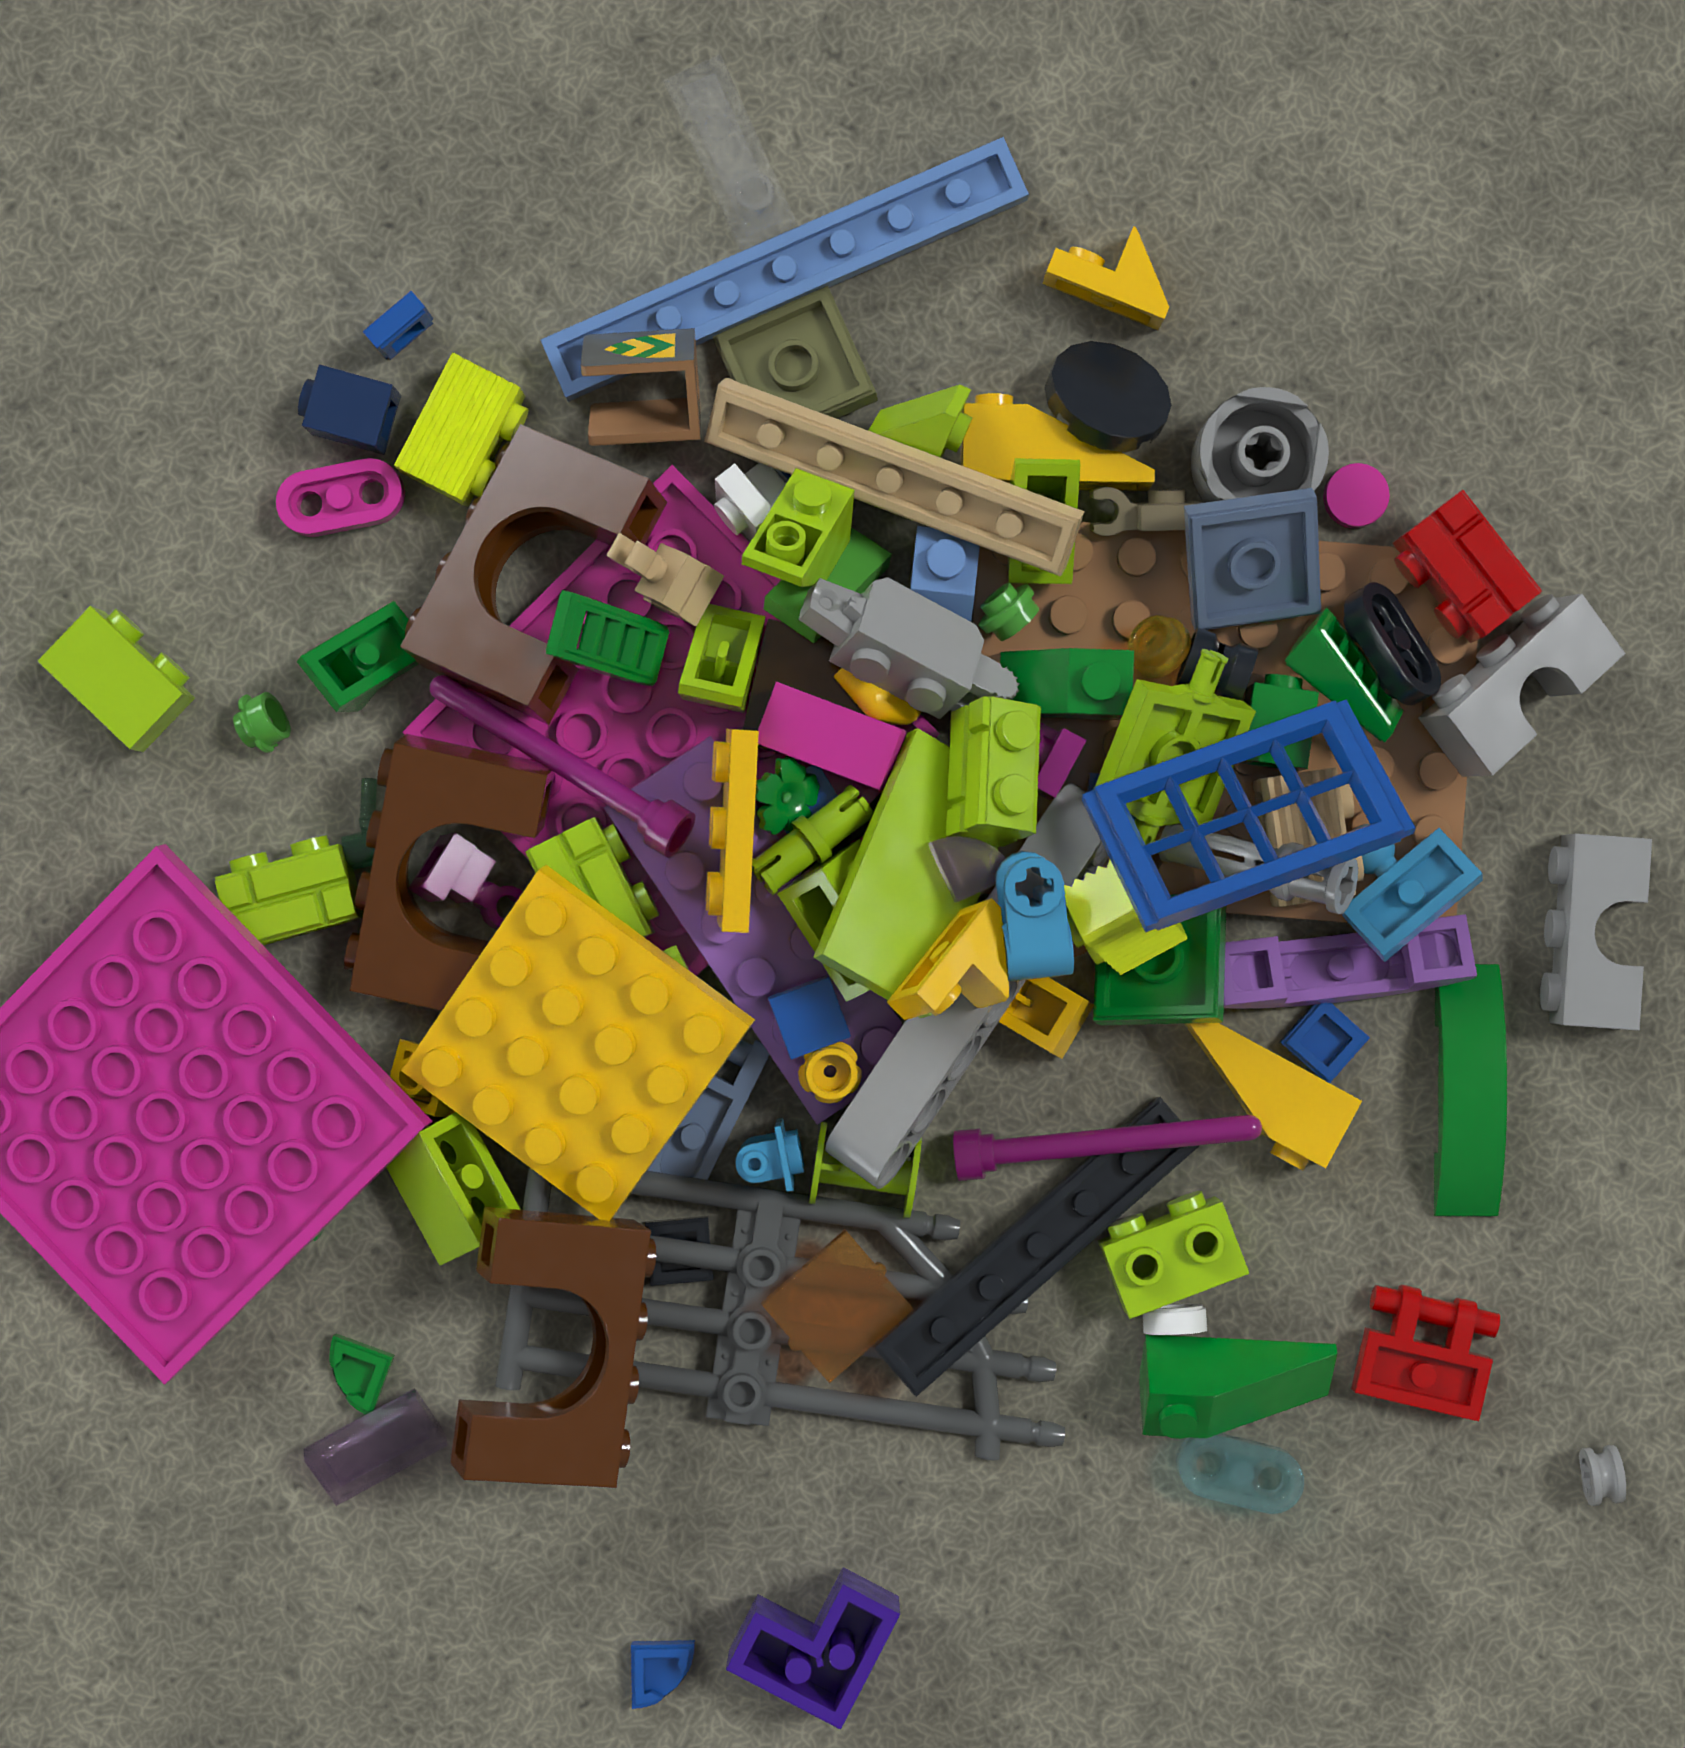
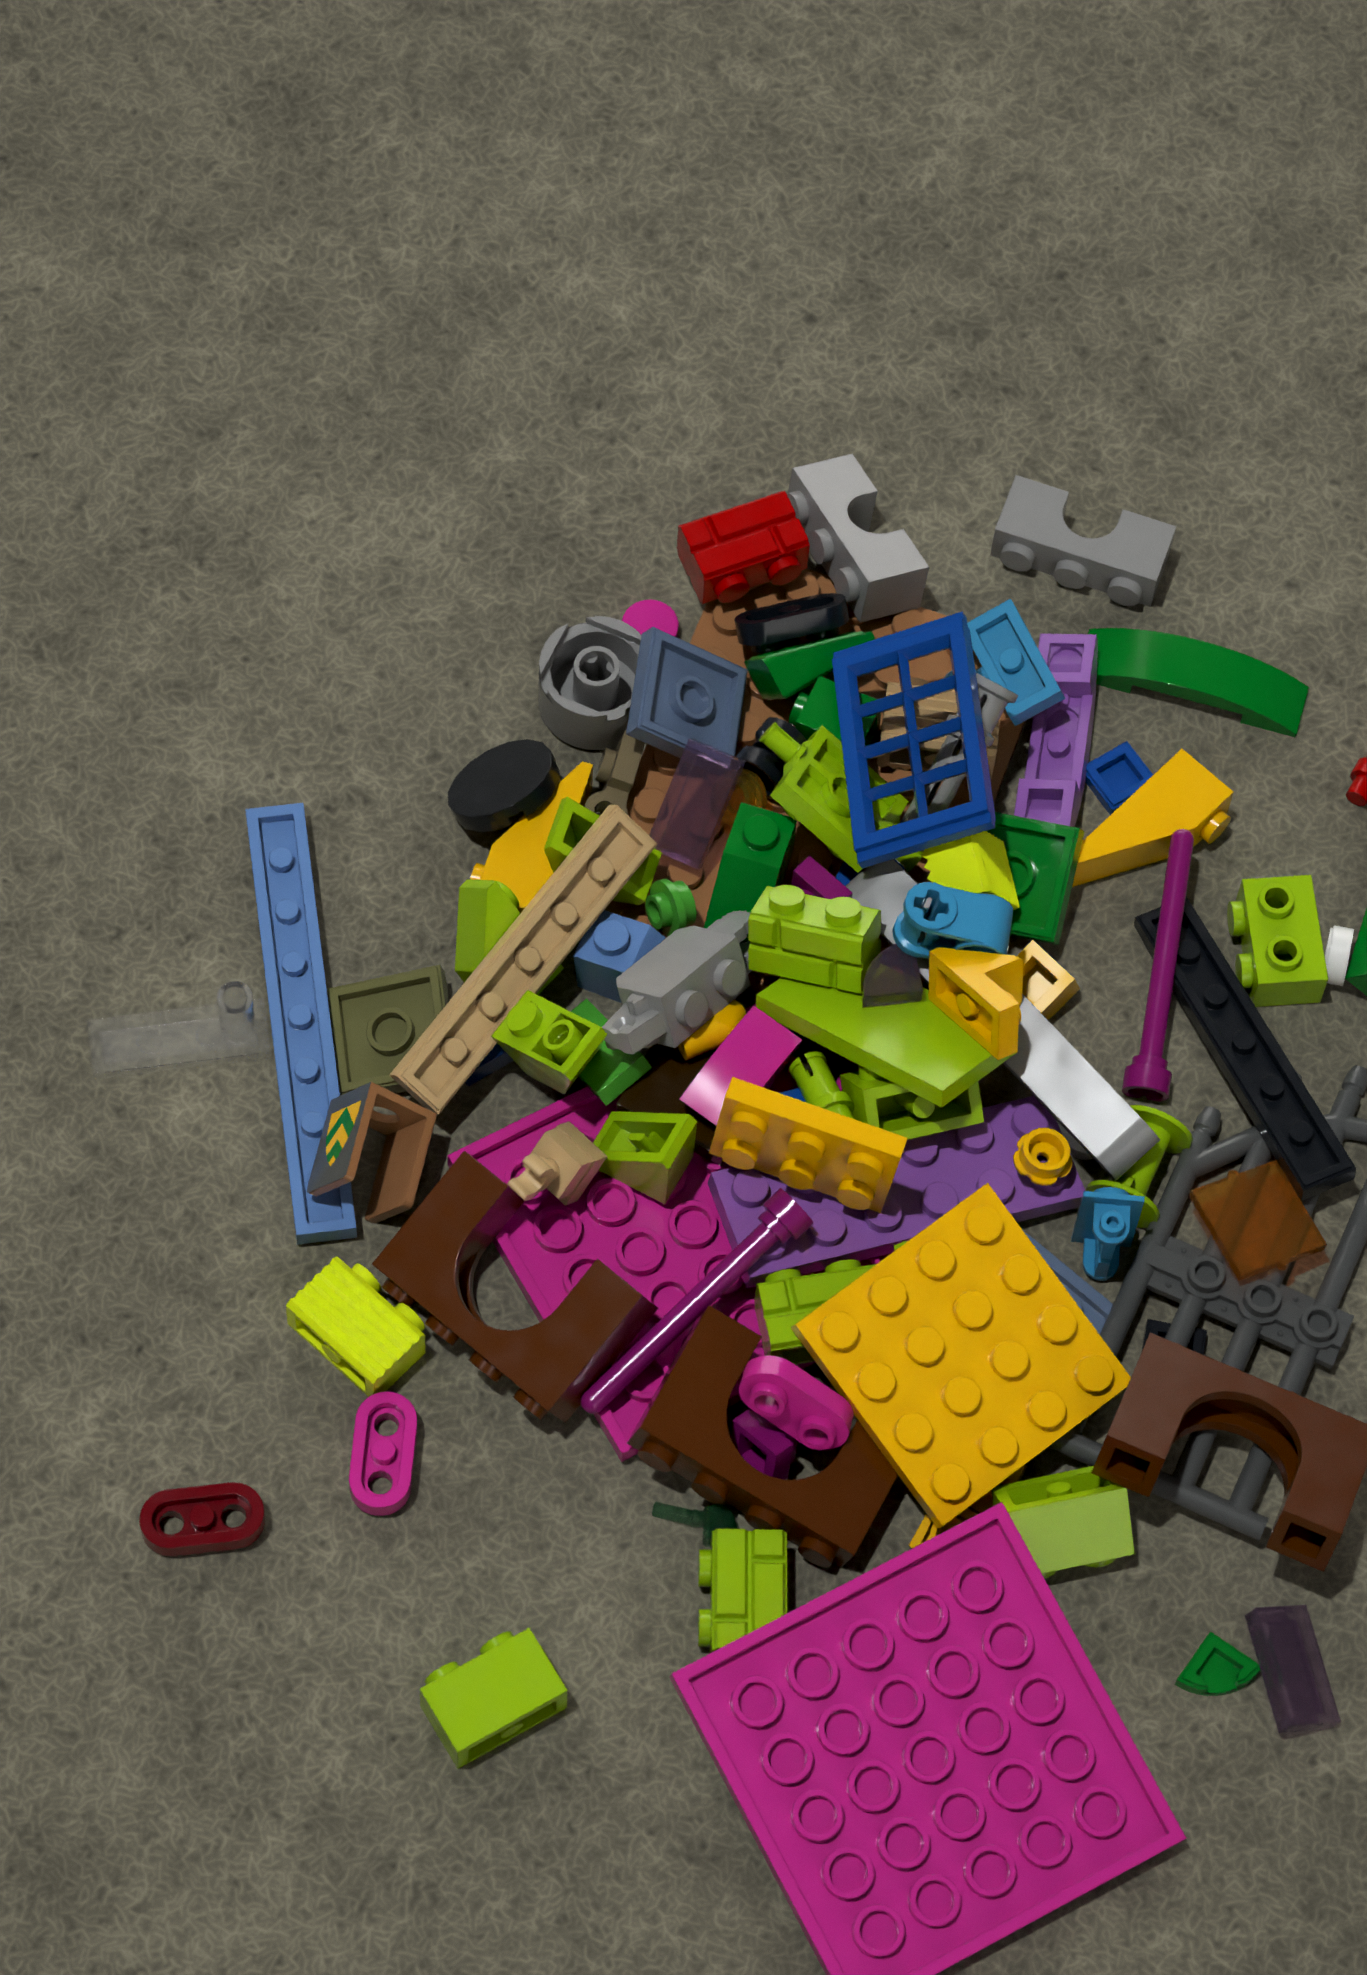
camera: 75 degrees left, 25 degrees down
(222, 345) = (202, 1514): none -> dark red plate
(254, 723) = (572, 1583): bright green plate -> none
(349, 409) = (304, 1418): dark blue brick -> none
(360, 659) = (544, 1467): green slope -> none
(399, 326) = (241, 1353): blue tile -> none
(473, 872) = (796, 1402): none -> dark pink plate
(611, 640) = (600, 1226): green slope -> none
(746, 497) = (505, 1096): white bracket -> none
(809, 1017) = (988, 1158): blue tile -> none
(1127, 291) = (409, 749): yellow slope -> none
(1131, 602) = (695, 803): none -> tile

